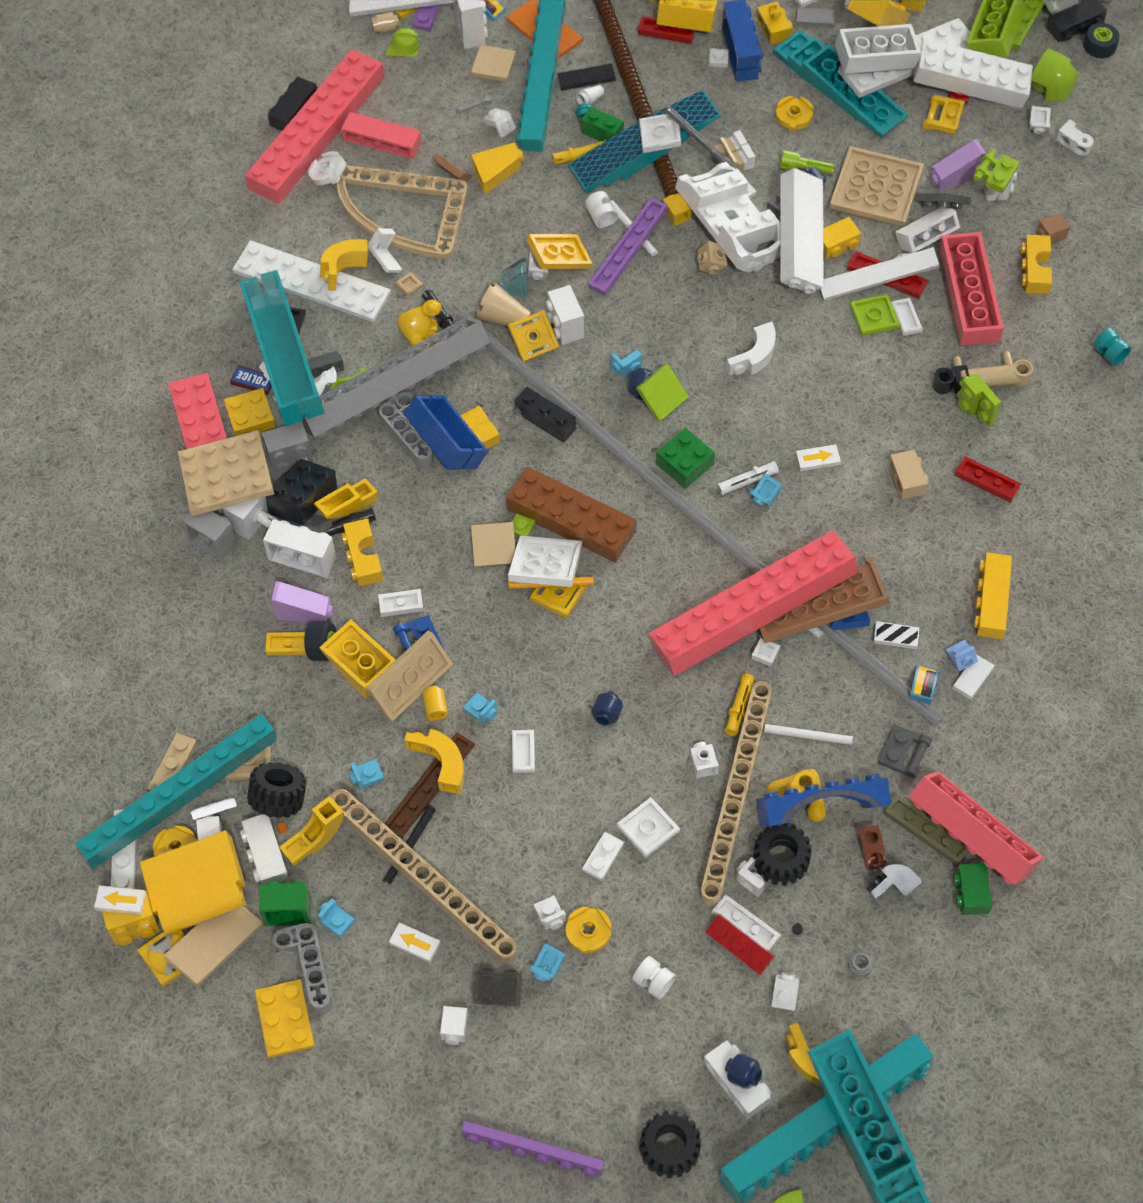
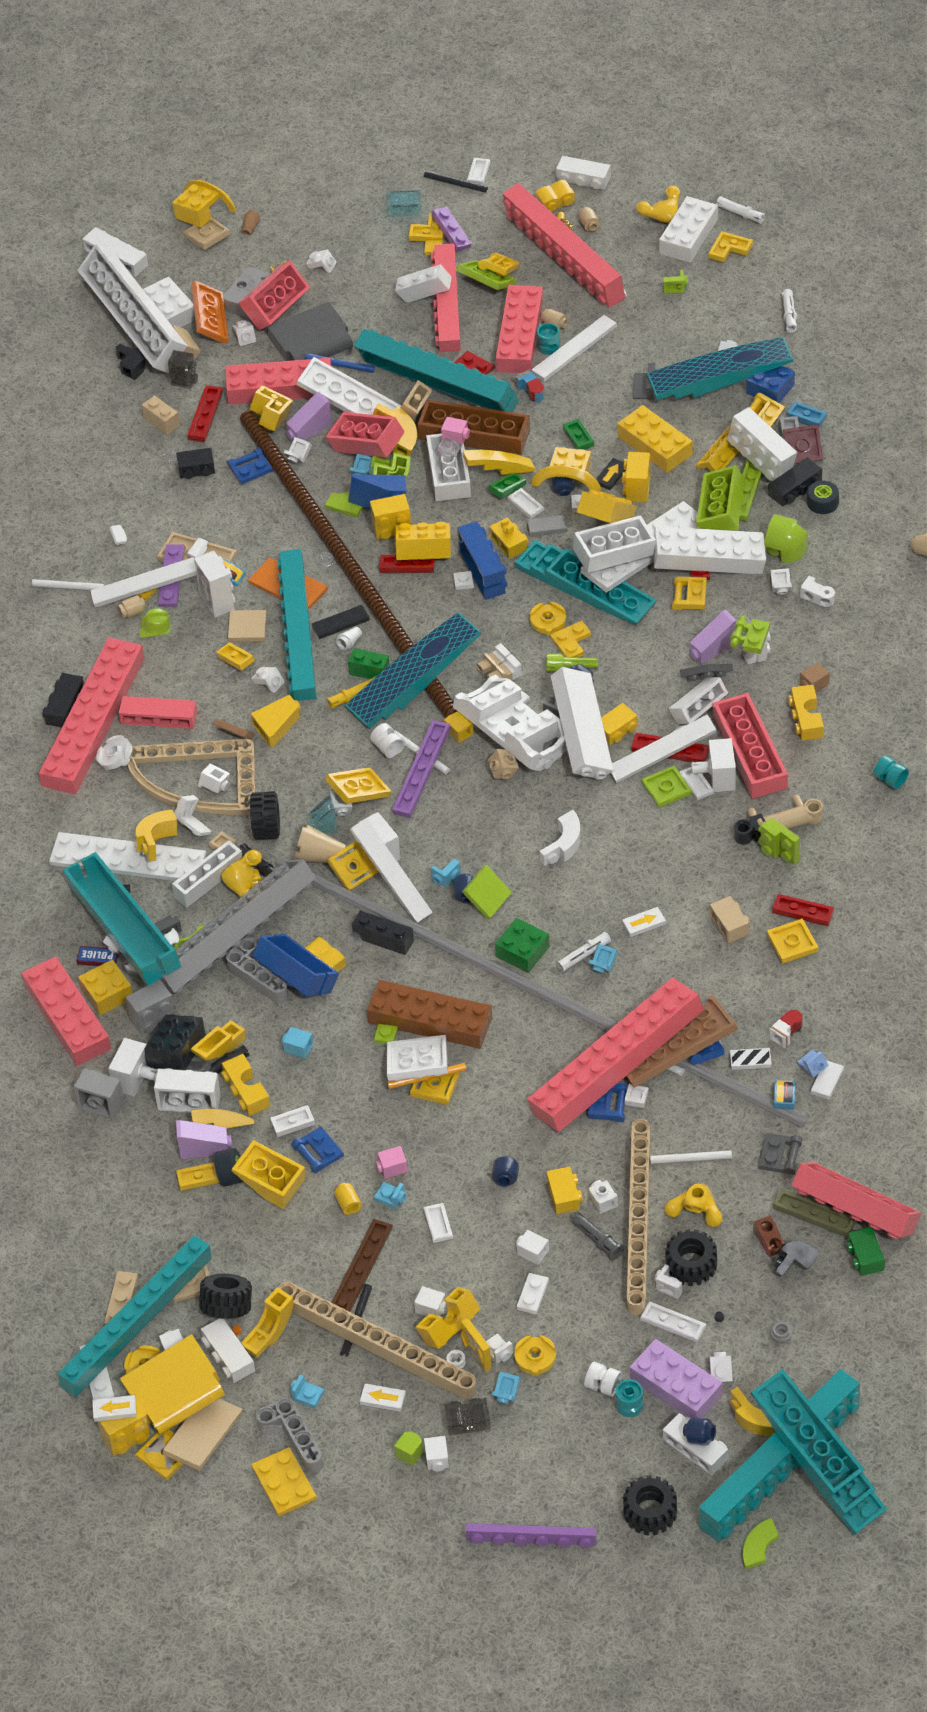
camera: 10 degrees left, 10 degrees down
(213, 808) = (170, 1325): white tile -> none
(225, 473) = (102, 1037): tan plate -> none
(285, 903) = (259, 1386): green brick -> none
(326, 584) = (220, 1117): none -> yellow slope
(366, 774) = (300, 1270): medium azure bracket -> none
(381, 315) = (205, 874): none -> white brick
(409, 676) = (319, 1179): tan plate -> none
(418, 215) = (214, 779): none -> white brick
(426, 1011) = (409, 1448): none -> lime piece
(428, 516) = (297, 1042): none -> medium azure brick
(445, 750) = (367, 1234): yellow arch -> none
(456, 264) = (264, 815): none -> black tyre
(472, 92) = (235, 656): none -> yellow plate
(490, 672) = (391, 1162): none -> bright pink brick
(491, 844) = (430, 1302): none -> white brick
(493, 544) = (364, 1054): tan tile -> none
(504, 909) = (456, 1354): none -> white bush
(520, 861) = (436, 1330): none -> yellow arch
(523, 899) = (476, 1344): none -> yellow piece
(568, 350) = (391, 871): none -> white tile
(582, 109) = (345, 653): teal plate -> none
(615, 802) = (532, 1247): none -> white brick
(648, 827) = (567, 1261): white plate -> none
(659, 133) = (427, 658): white tile -> none
(663, 744) = (563, 1190): none -> yellow brick
(677, 1007) = (629, 1398): none -> teal wheel
(693, 812) = (603, 1240): none -> dark grey pin
(698, 137) = (464, 656): dark grey piece -> none
(725, 658) = (601, 1107): none -> blue plate
(733, 998) = (676, 1380): none -> lavender brick
(737, 712) = (623, 1149): yellow pin -> none
(740, 944) = (672, 1337): red plate -> none
(777, 809) = (755, 1191): blue arch -> none
(809, 137) = (568, 638): none -> yellow plate
(876, 186) = (641, 670): tan plate -> none
(934, 303) = (719, 765): none -> white brick
(945, 605) = (785, 1027): none -> leg
(969, 512) = (792, 941): none -> yellow plate
(994, 595) = (830, 1006): yellow brick -> none

